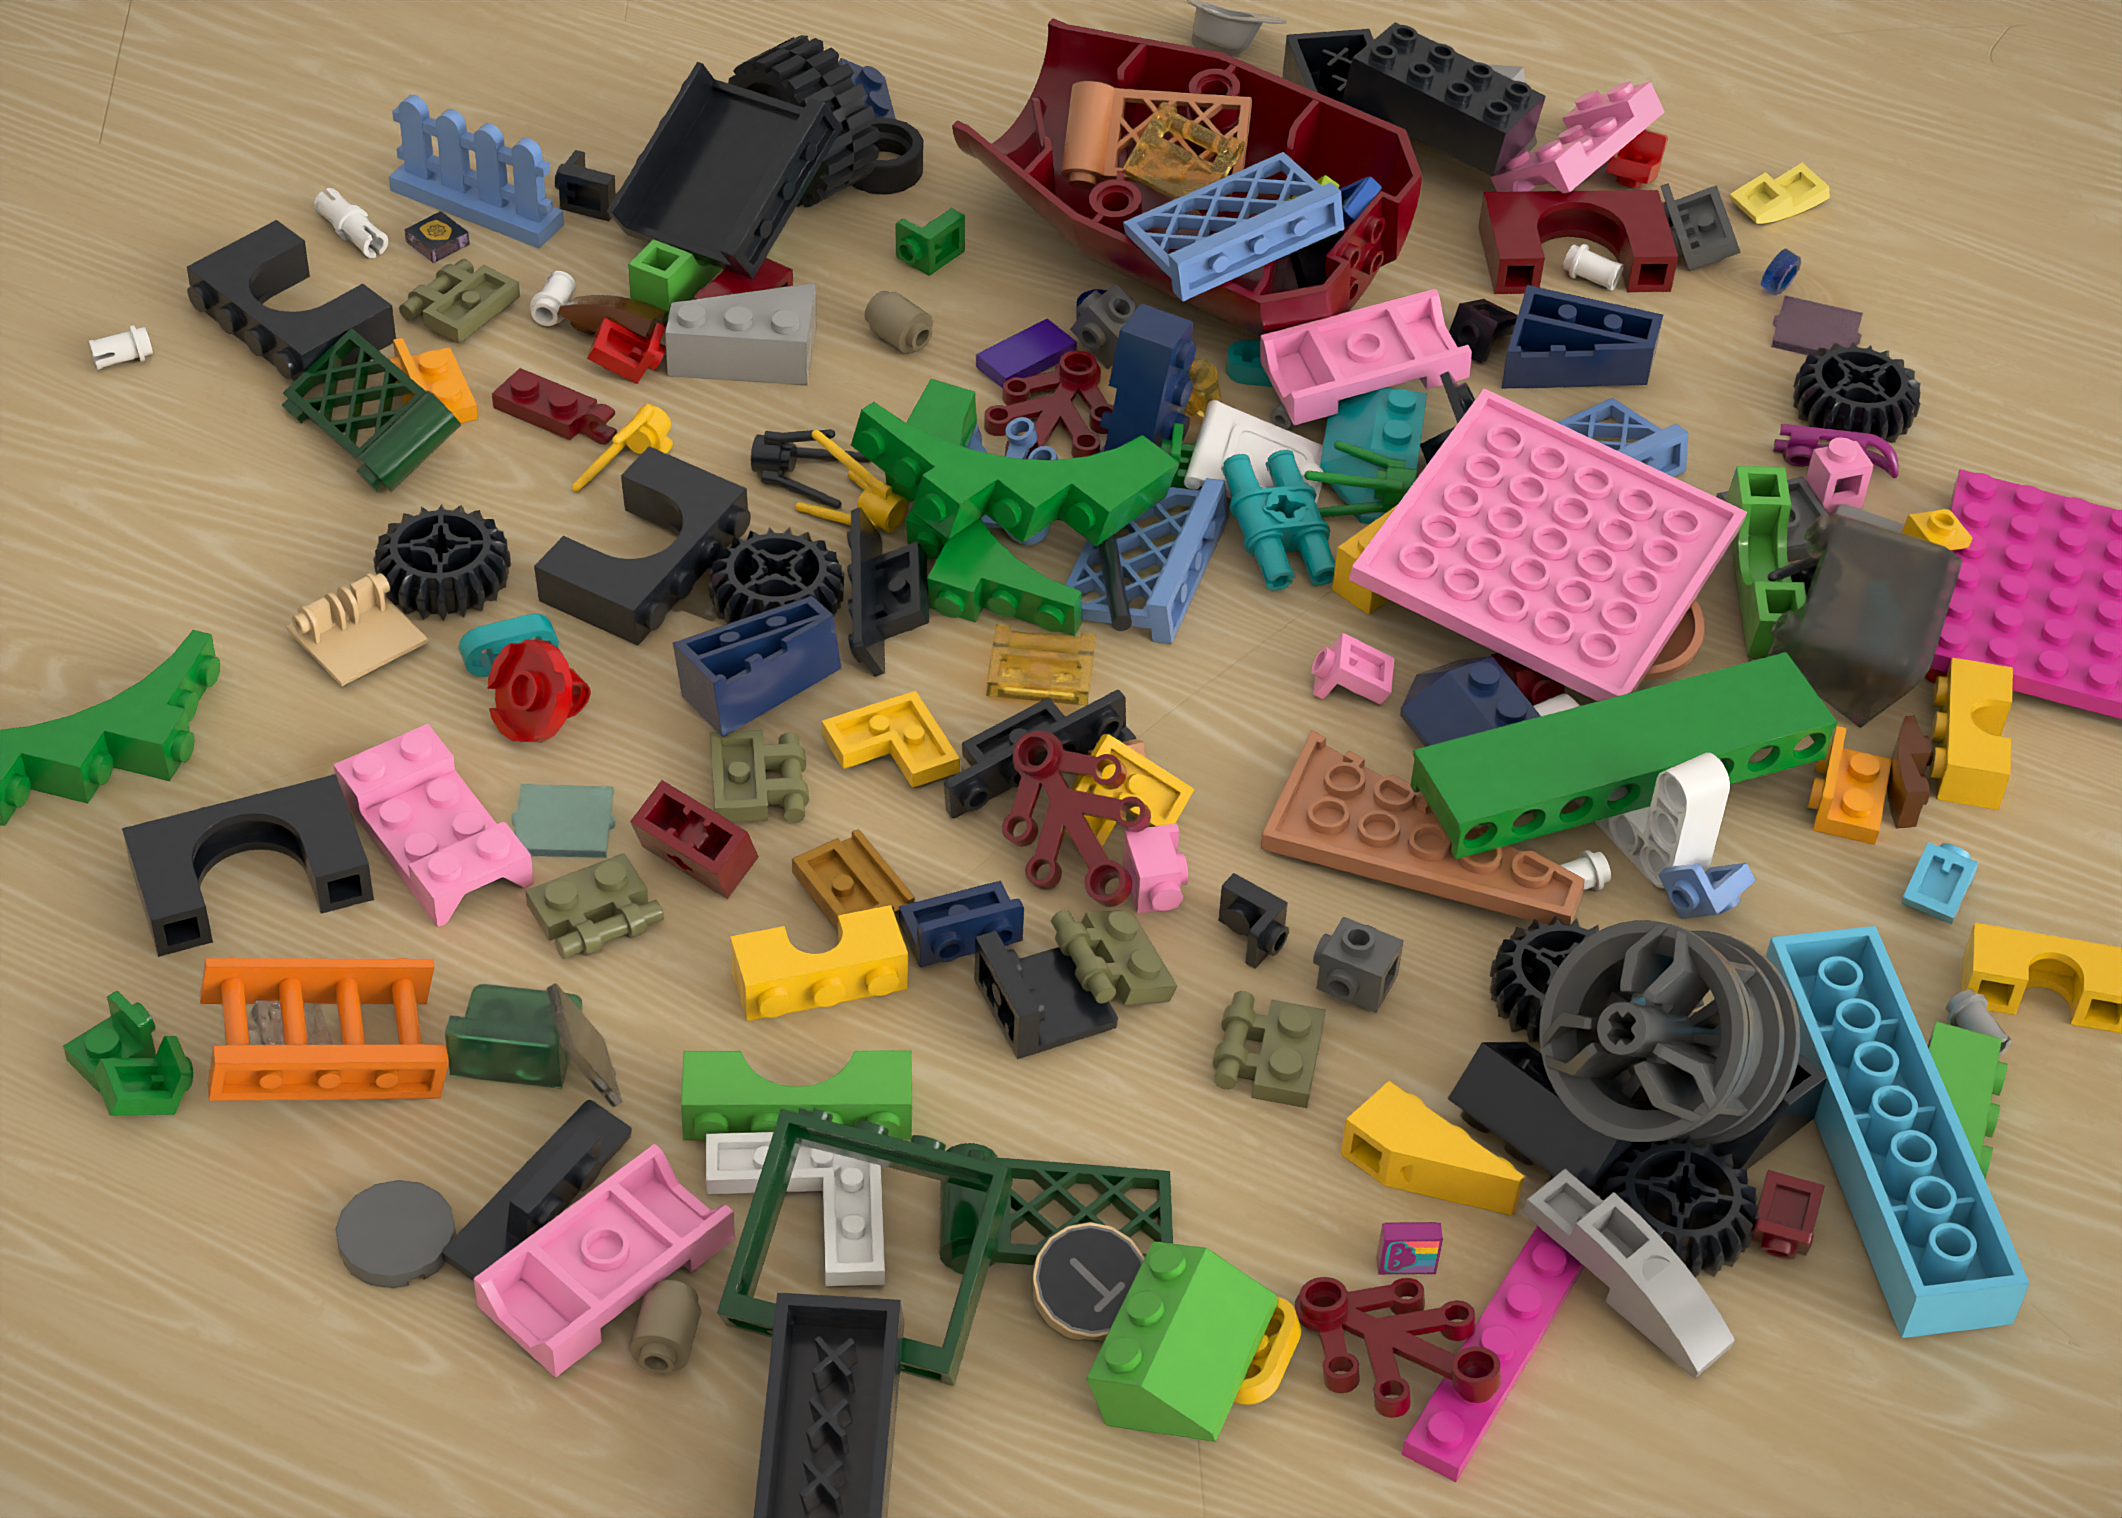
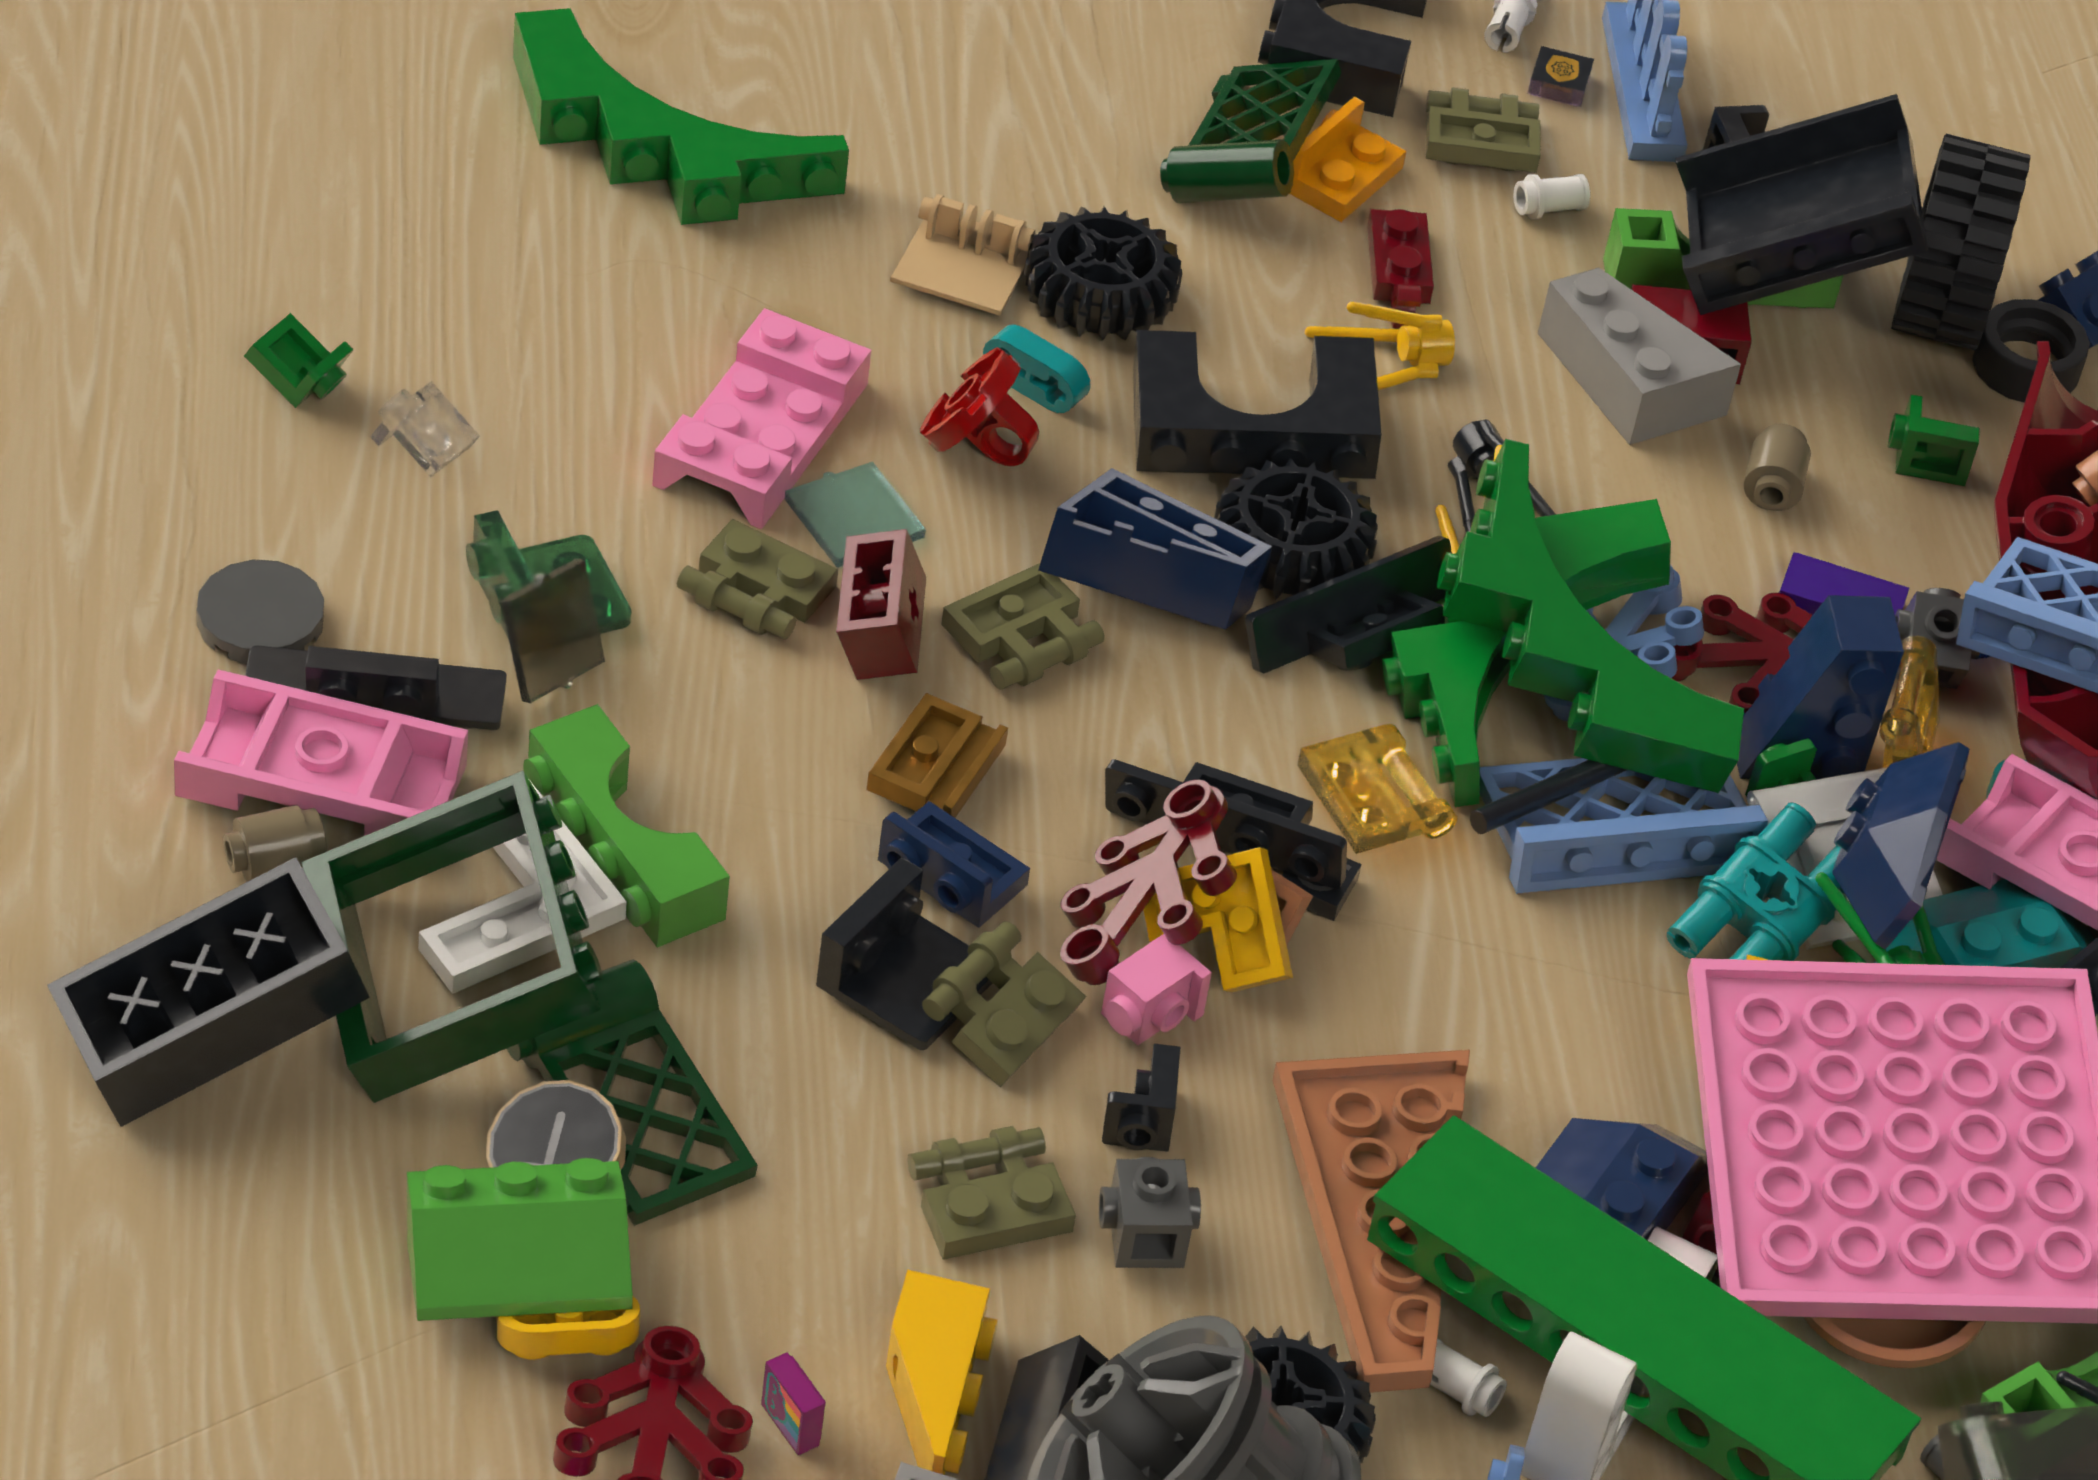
camera: 55 degrees right, 0 degrees up
(119, 1036) = (338, 322): green bracket -> none
(298, 820) = (577, 259): black arch -> none
(322, 1071) = (409, 487): orange fence -> none
(590, 310) = (1563, 237): reddish brown slope -> none
(626, 351) = (1520, 274): red bracket -> none
(781, 979) = (767, 748): yellow arch -> none
(897, 728) = (1174, 705): yellow plate -> none
(1316, 413) = (1896, 838): none -> dark blue wedge
(1355, 668) = (1602, 1059): bright pink bracket -> none

